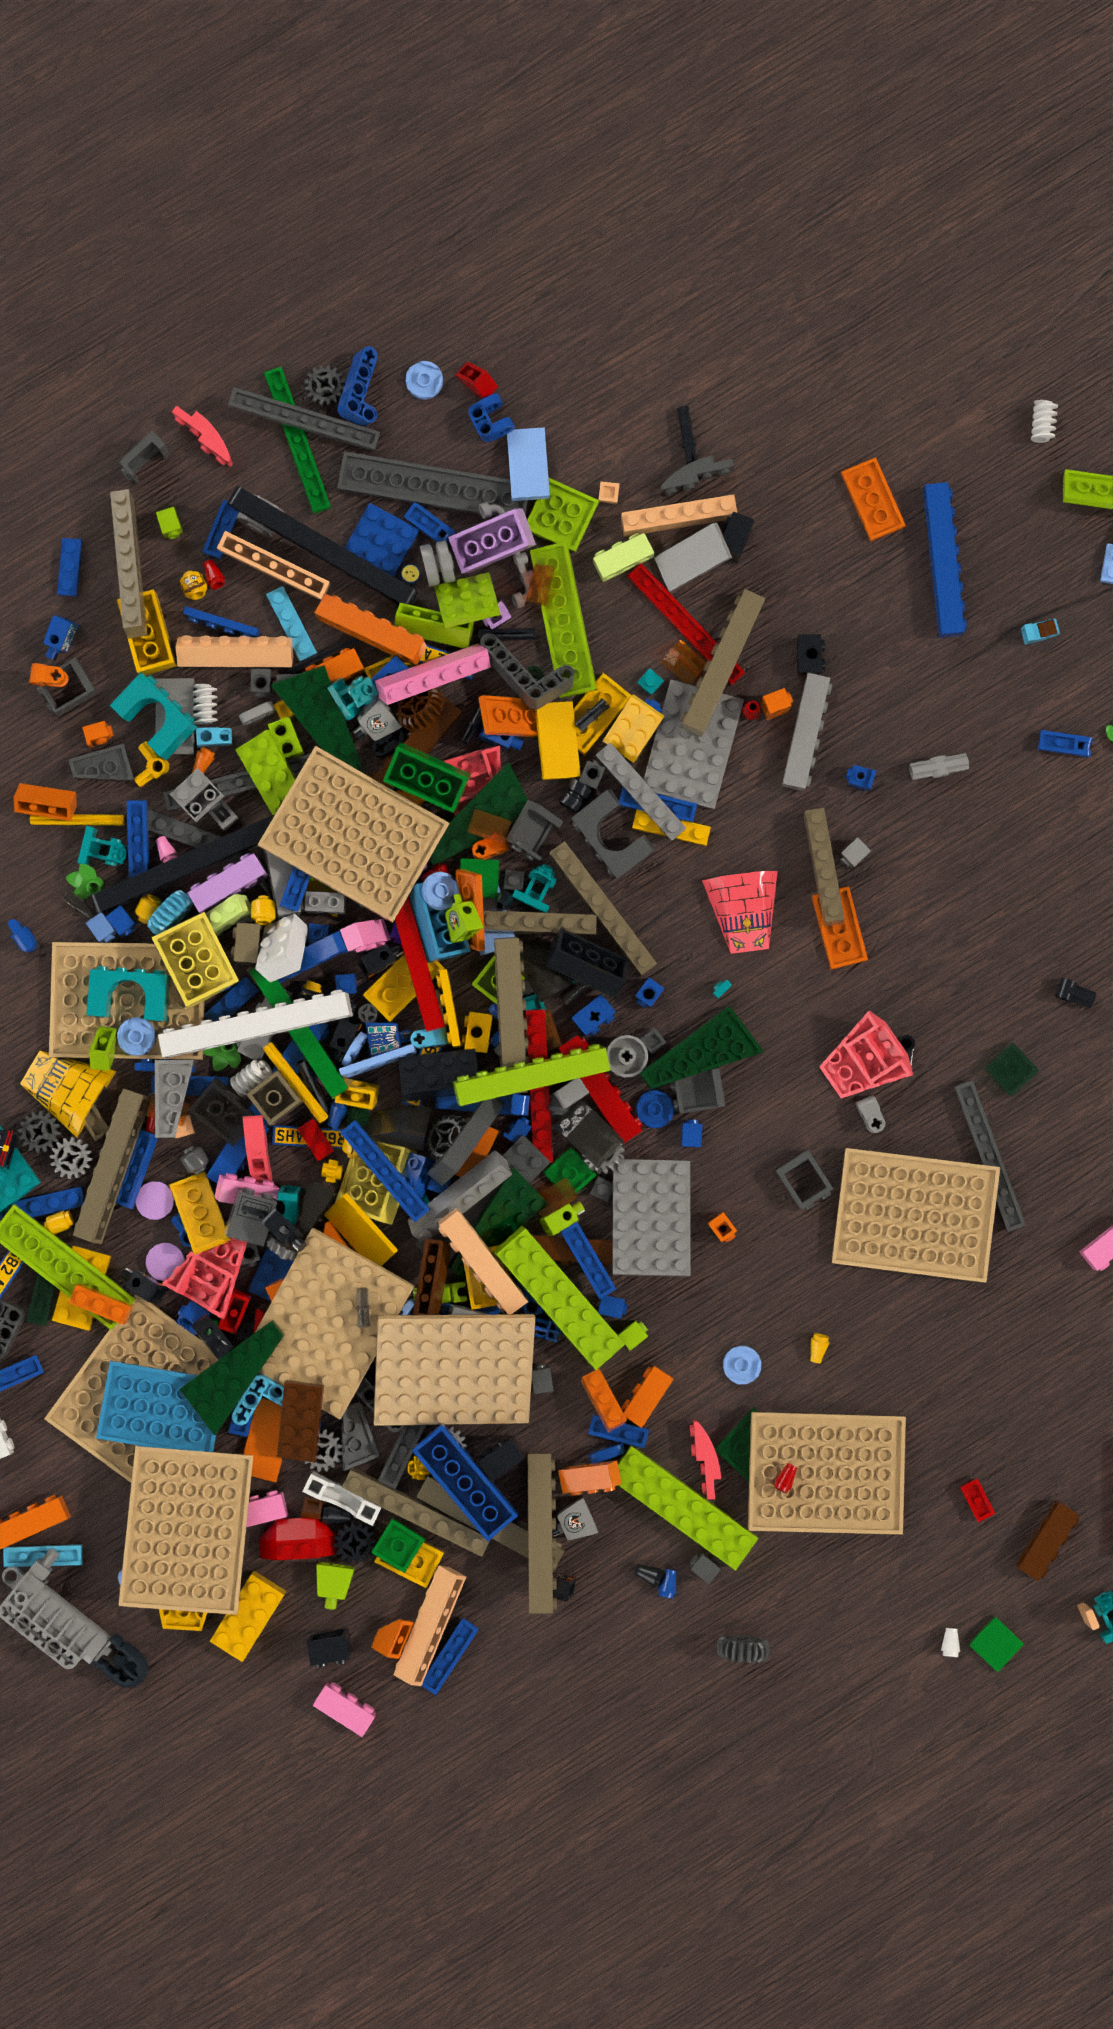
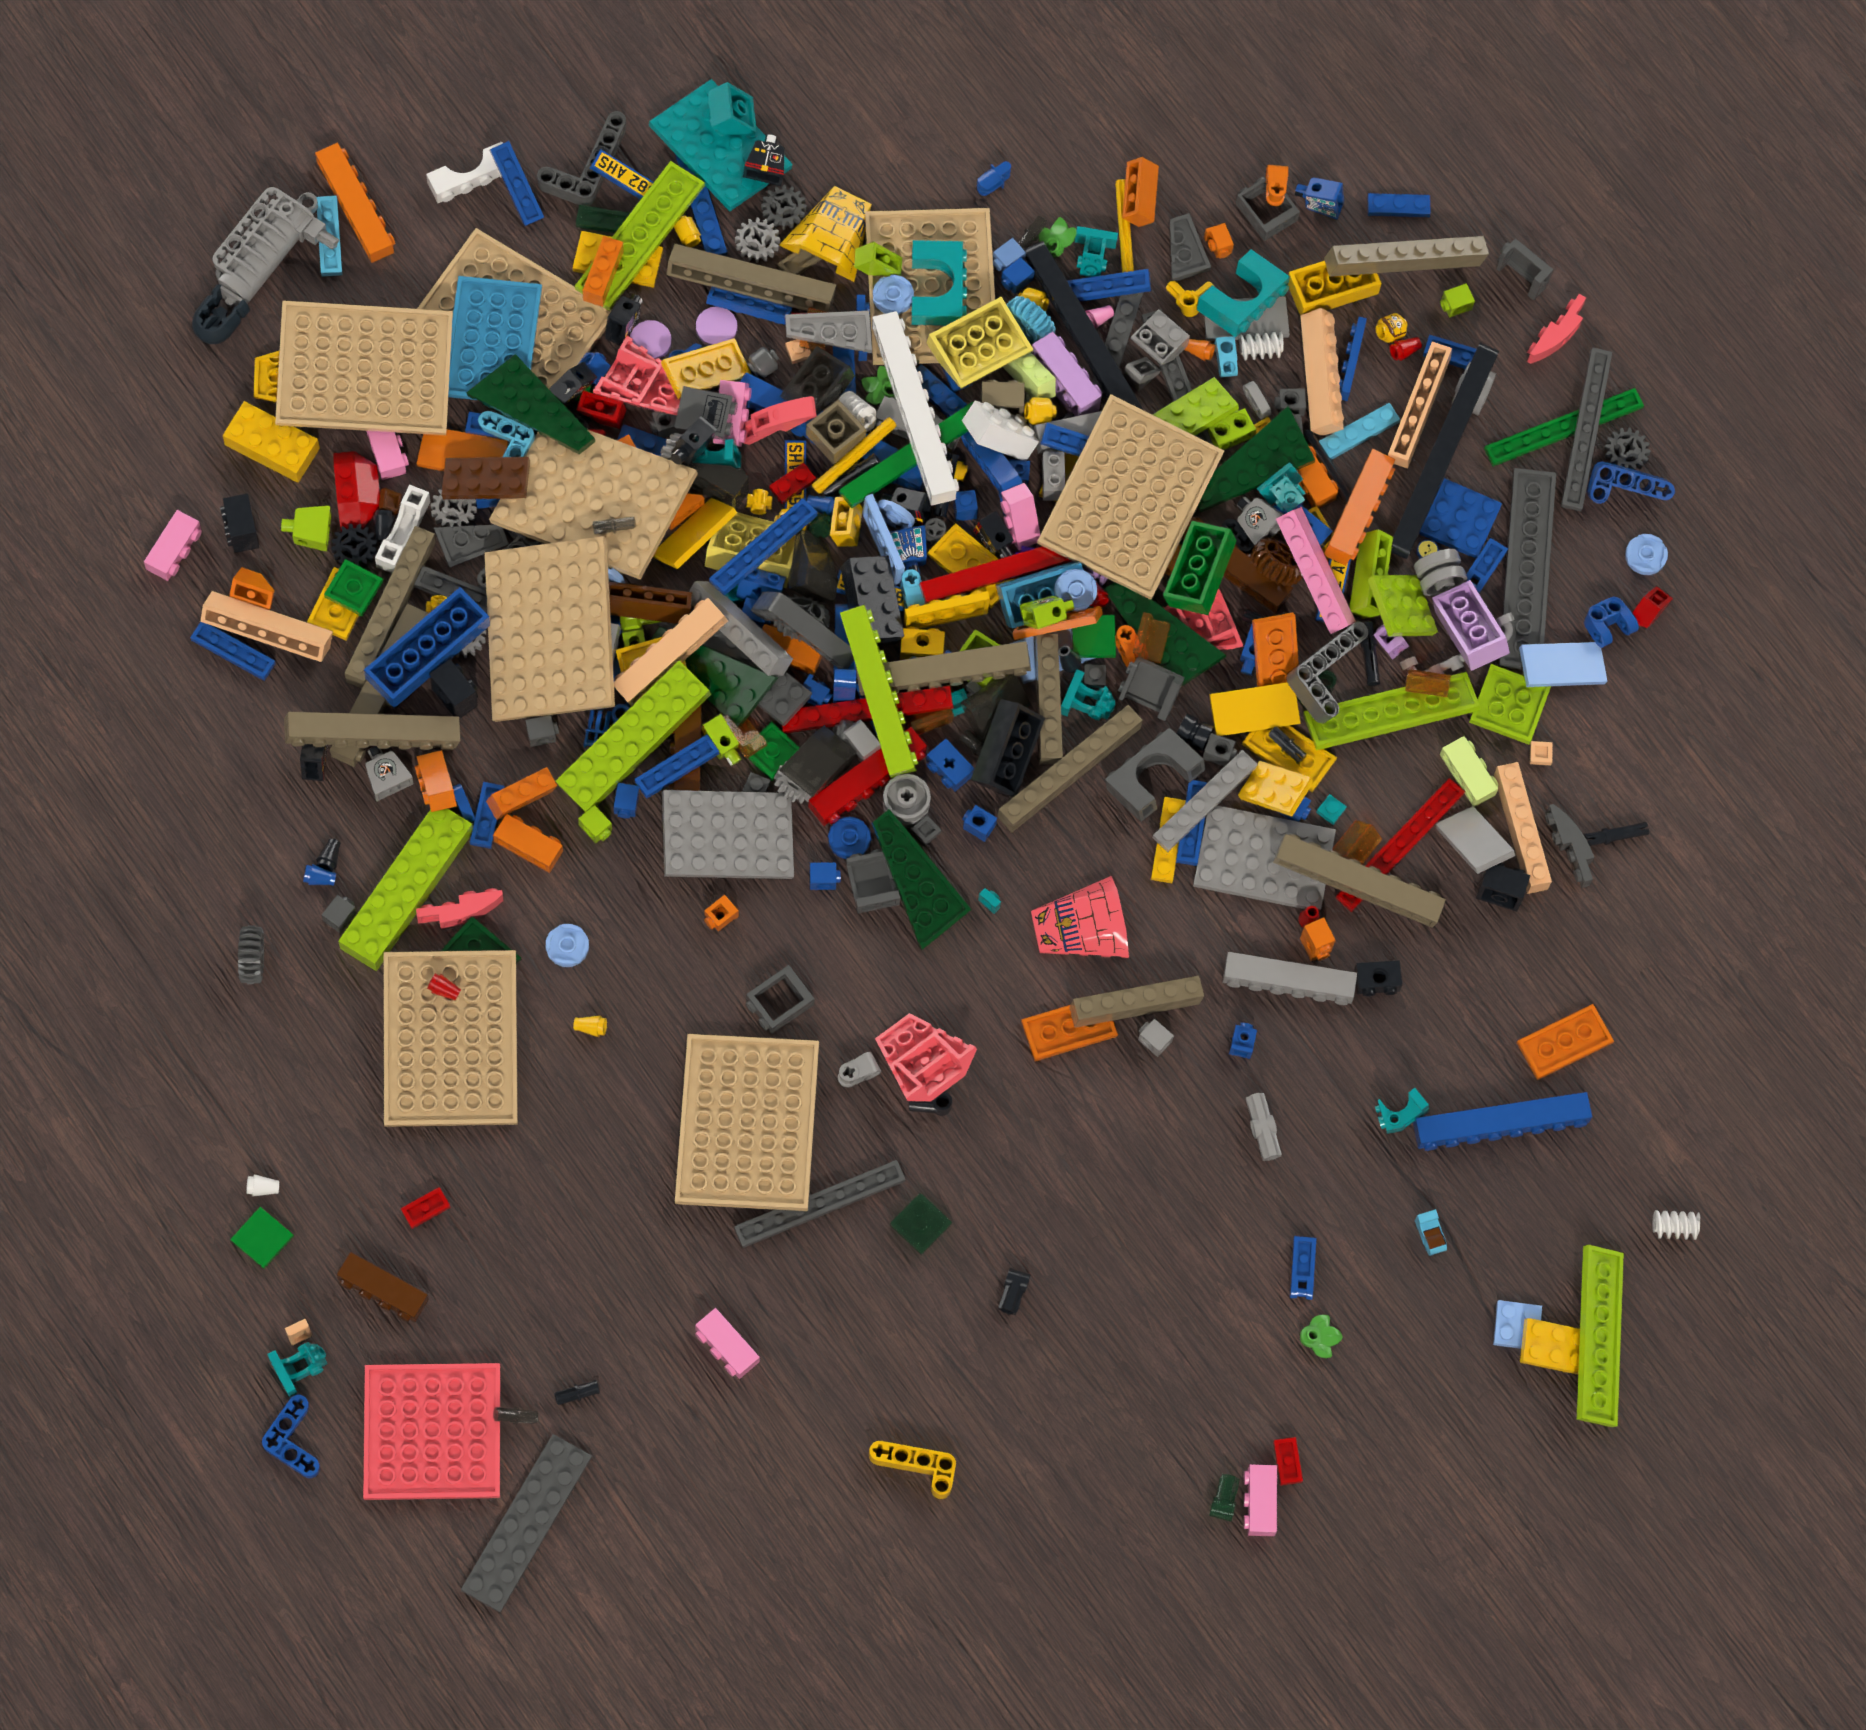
camera: 80 degrees right, 15 degrees down
(934, 634) = (1415, 1108): none -> teal tile

